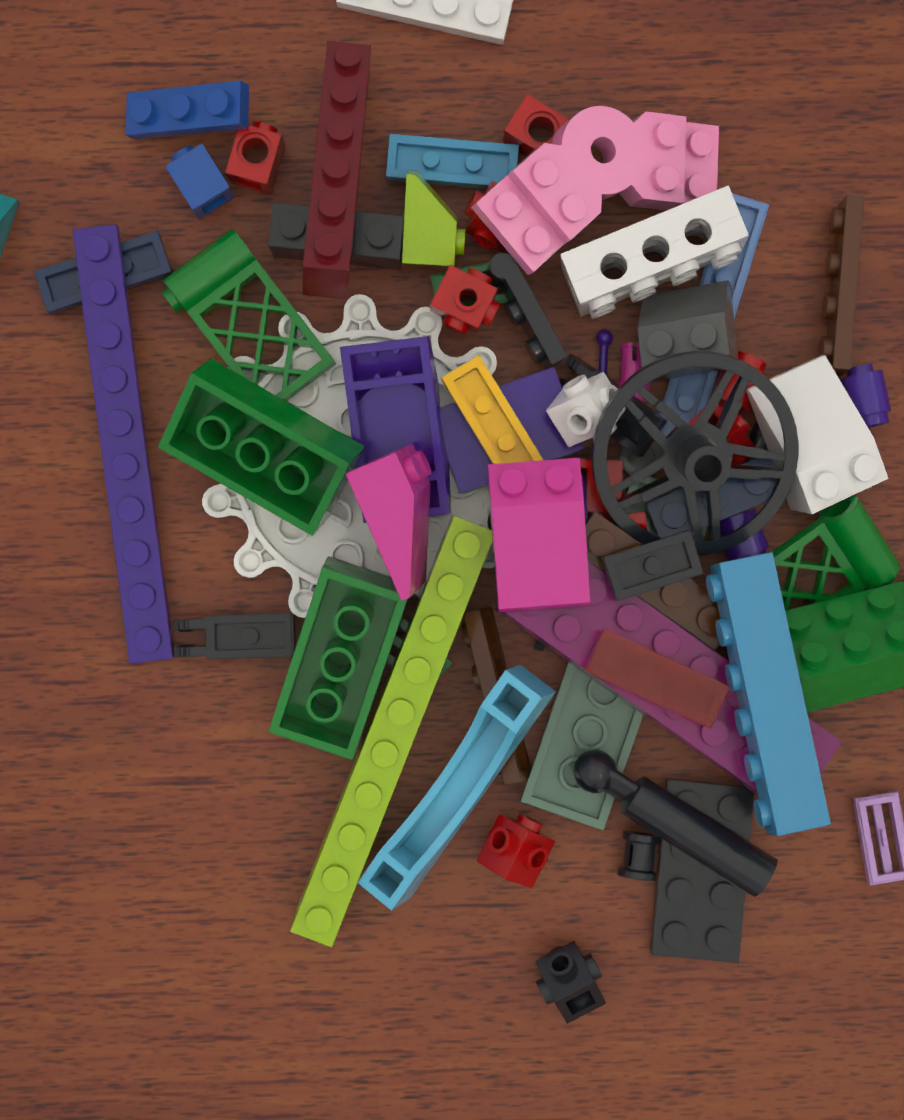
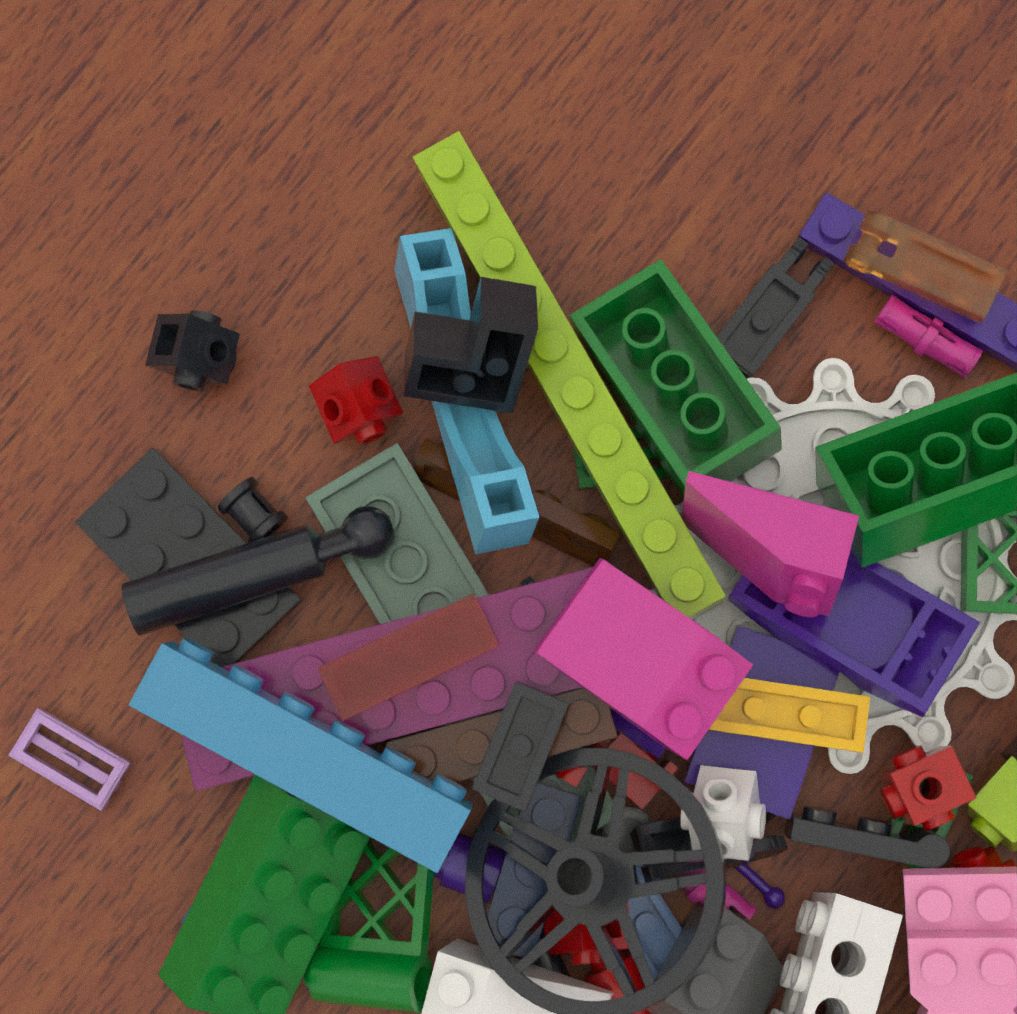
camera: 125 degrees right, 5 degrees down
(132, 559) = (926, 266): none -> clear orange plate
(171, 522) = (928, 336): none -> dark pink pin
(435, 795) = (478, 358): none -> black brick

